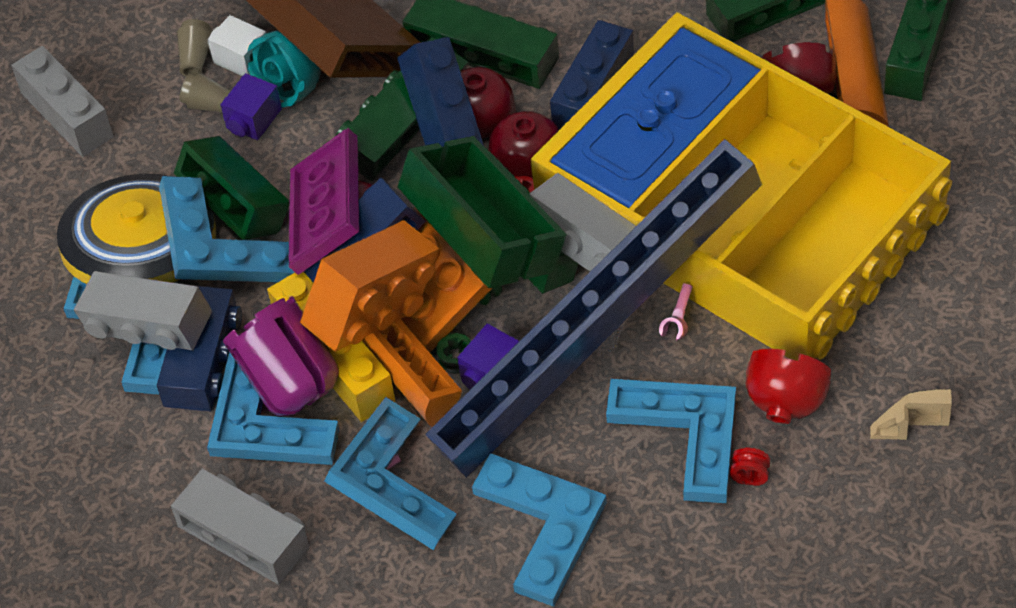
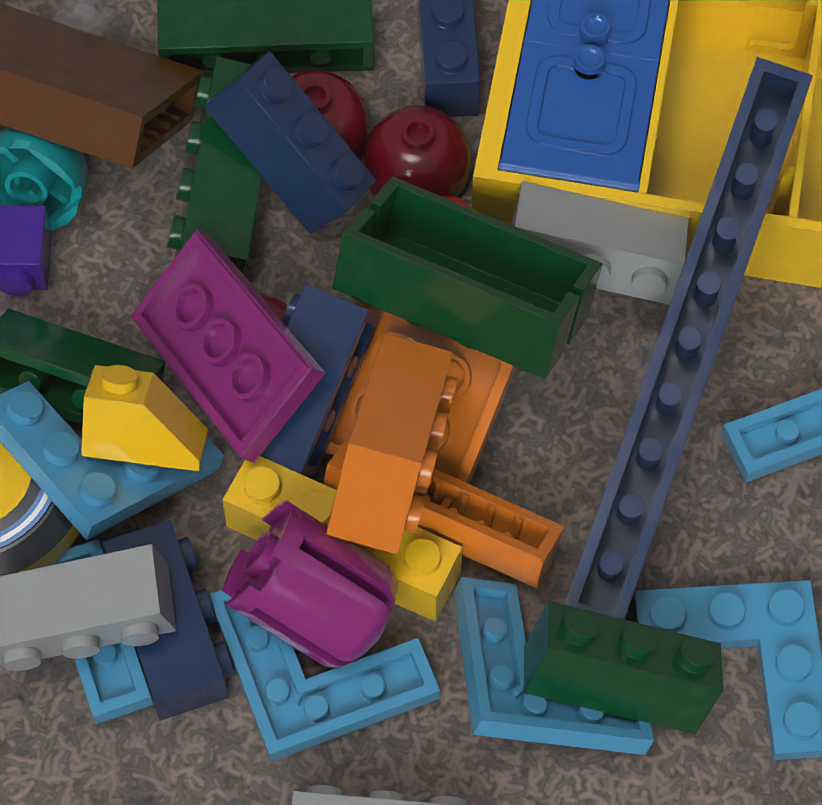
camera: 35 degrees left, 10 degrees up
(243, 221) = (139, 421): none -> yellow slope
(441, 485) = (622, 667): none -> dark green brick
(447, 343) = (502, 456): dark green bush -> none
(483, 354) = (558, 467): dark purple brick -> none
(678, 314) = (746, 307): bright pink hand -> none

